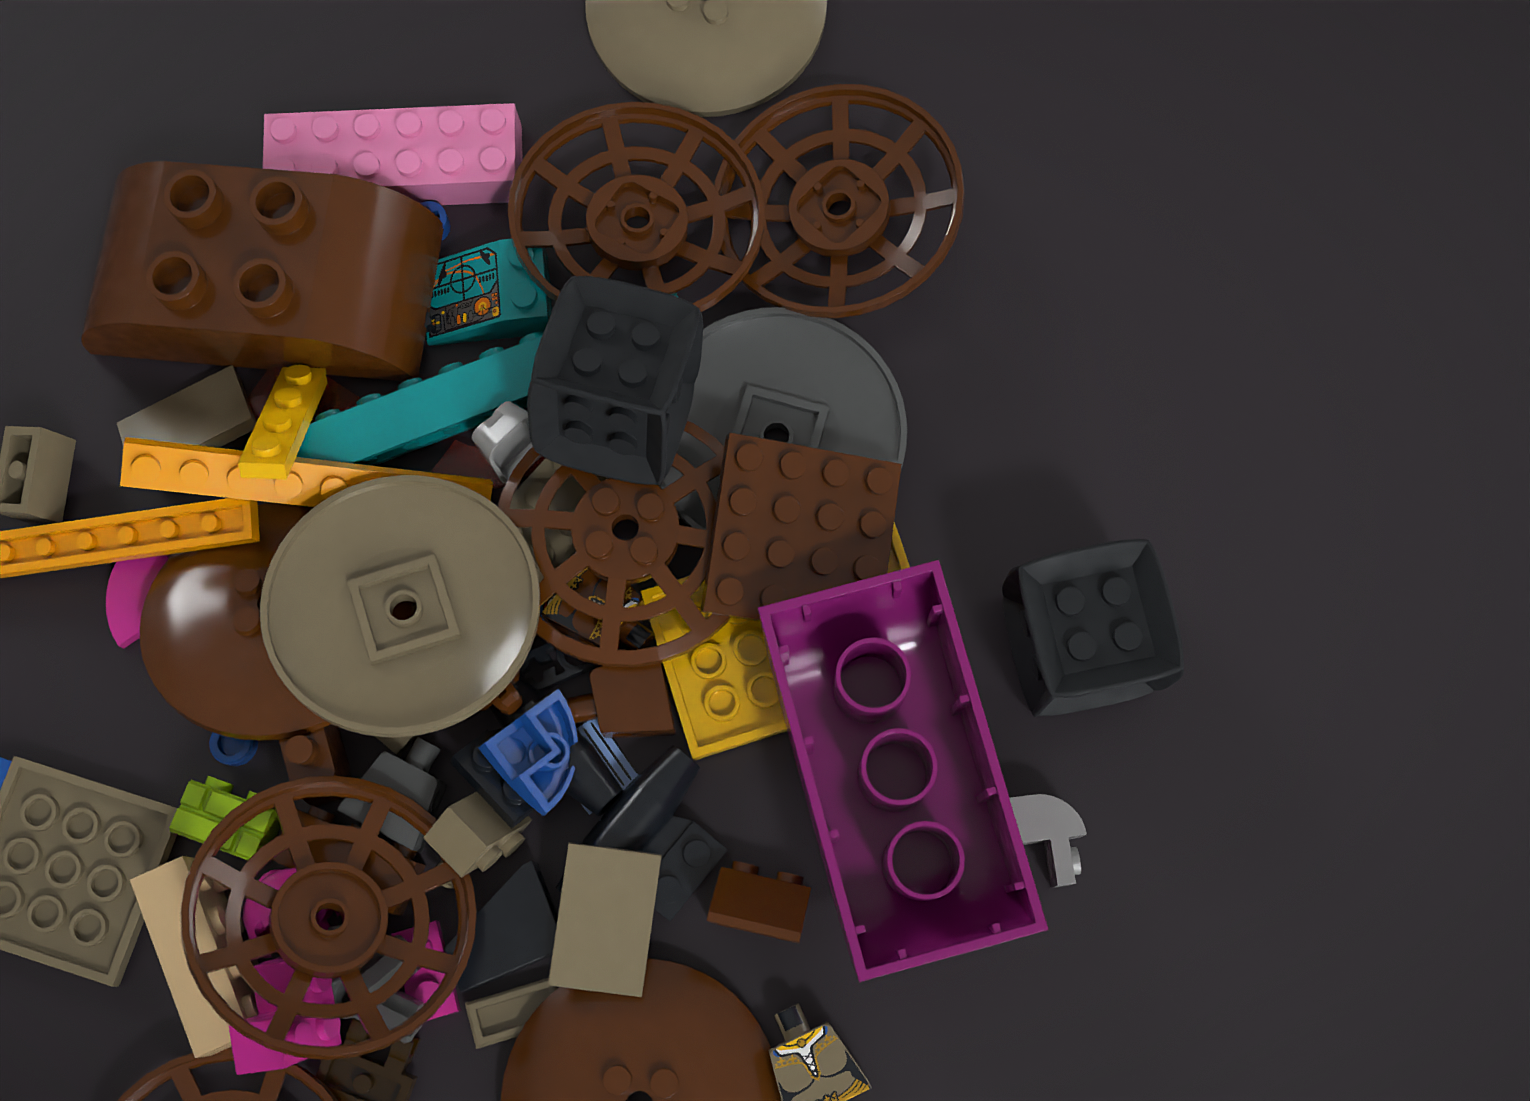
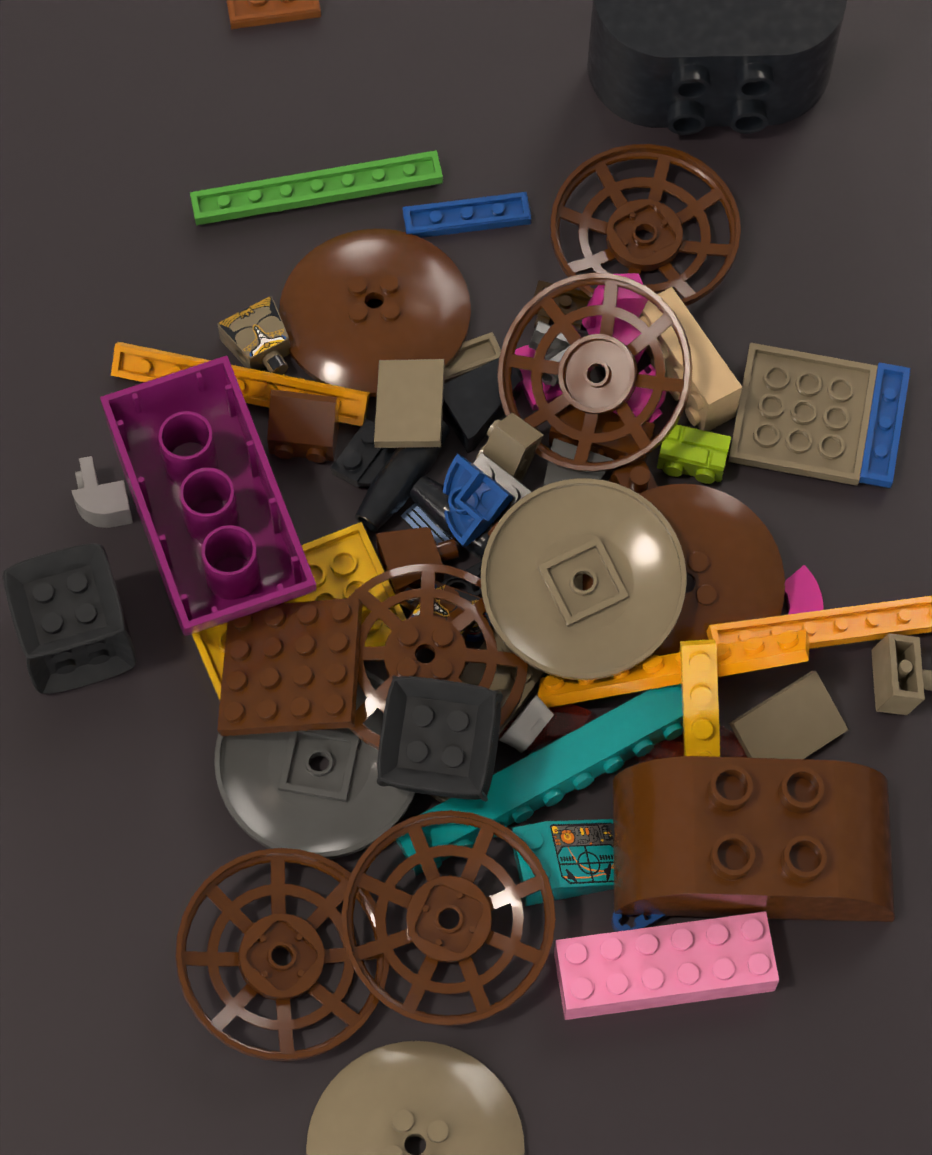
camera: 170 degrees right, 10 degrees down
(842, 995) = (147, 364): none -> light orange plate

